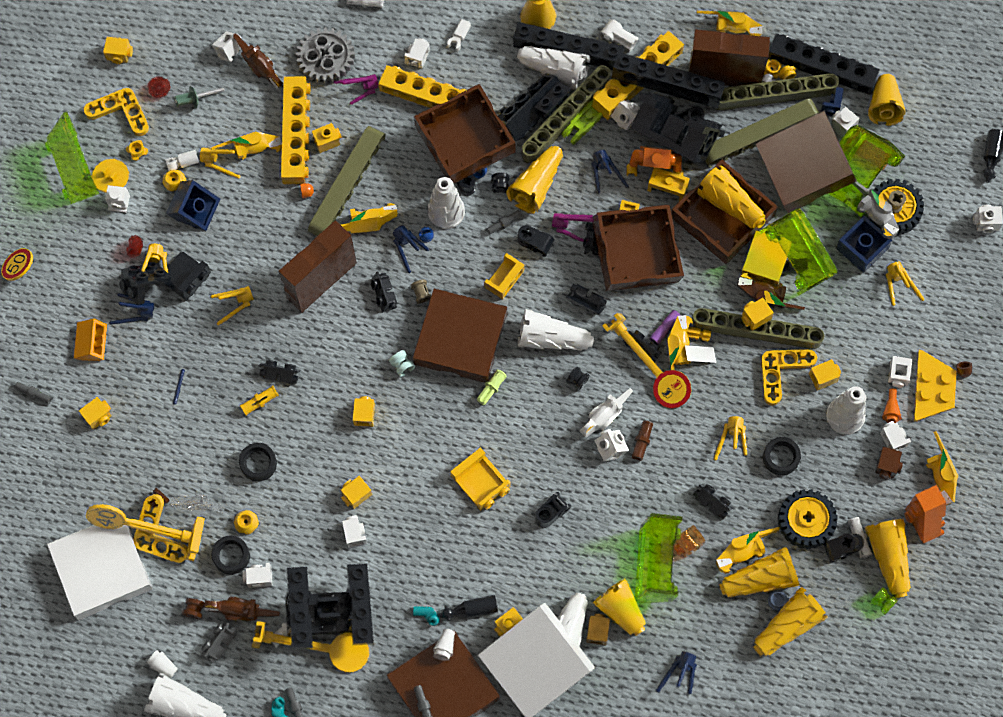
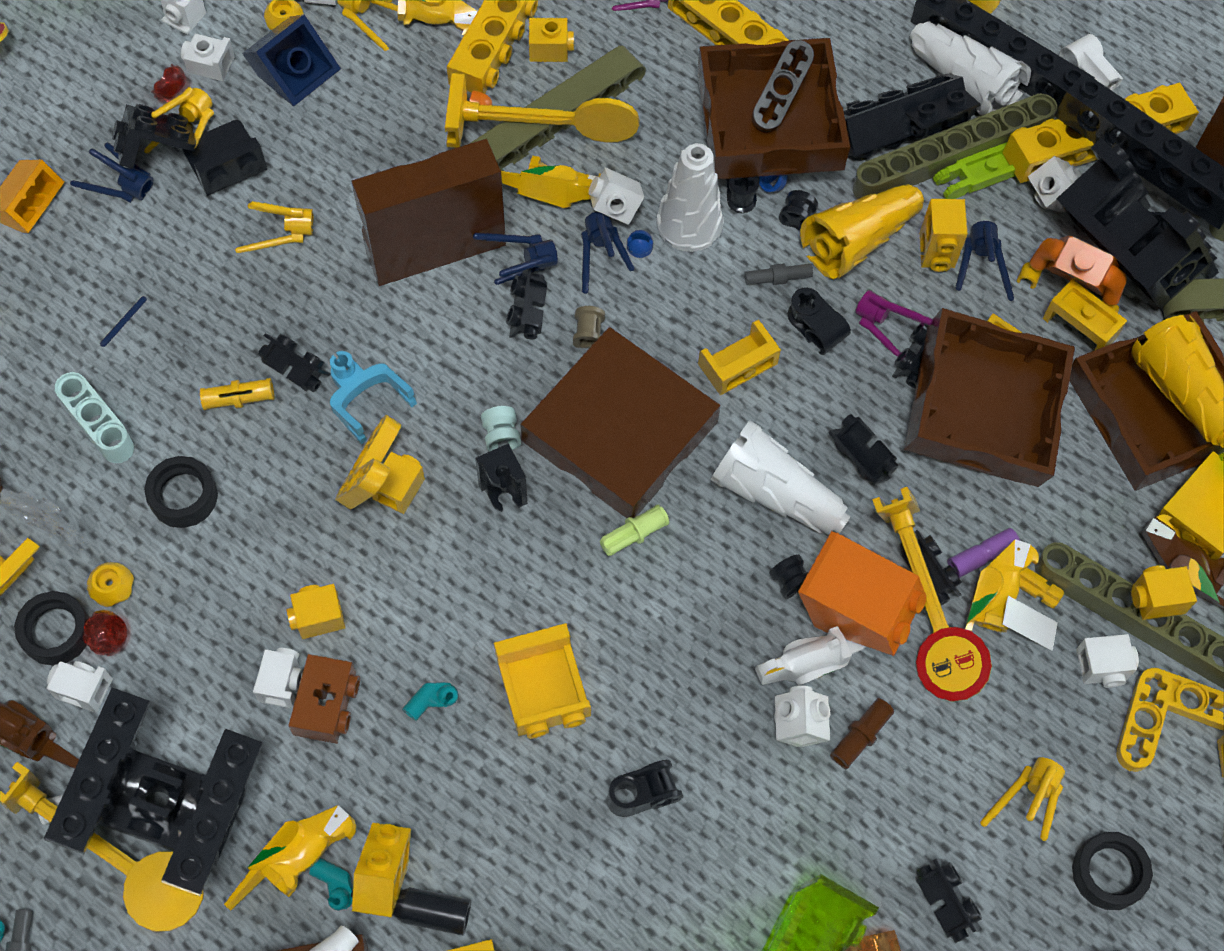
camera: 20 degrees right, 5 degrees down
(152, 224) = (208, 56): none -> white brick
(189, 436) = (90, 404): none -> light aqua beam
(258, 546) = (105, 633): none -> clear red plate
(315, 369) = (356, 380): none -> medium azure piece
(347, 418) = (368, 471): none -> yellow beam
(373, 177) = (597, 119): none -> yellow piece
(377, 263) = (537, 256): none -> dark blue plant
(378, 543) = (318, 679): none -> dark orange brick
(402, 607) = (294, 851): none -> yellow animal
(404, 214) = (616, 195): none -> white brick
(415, 386) = (501, 473): none -> black hinge
(430, 509) = (430, 695): none -> teal arm
(448, 597) = (381, 869): none -> yellow brick
(462, 106) = (801, 69): none -> dark grey beam
(580, 168) = (943, 234): none -> yellow brick
(616, 374) = (861, 595): none -> orange slope
(743, 356) = (1107, 660): none -> white brick

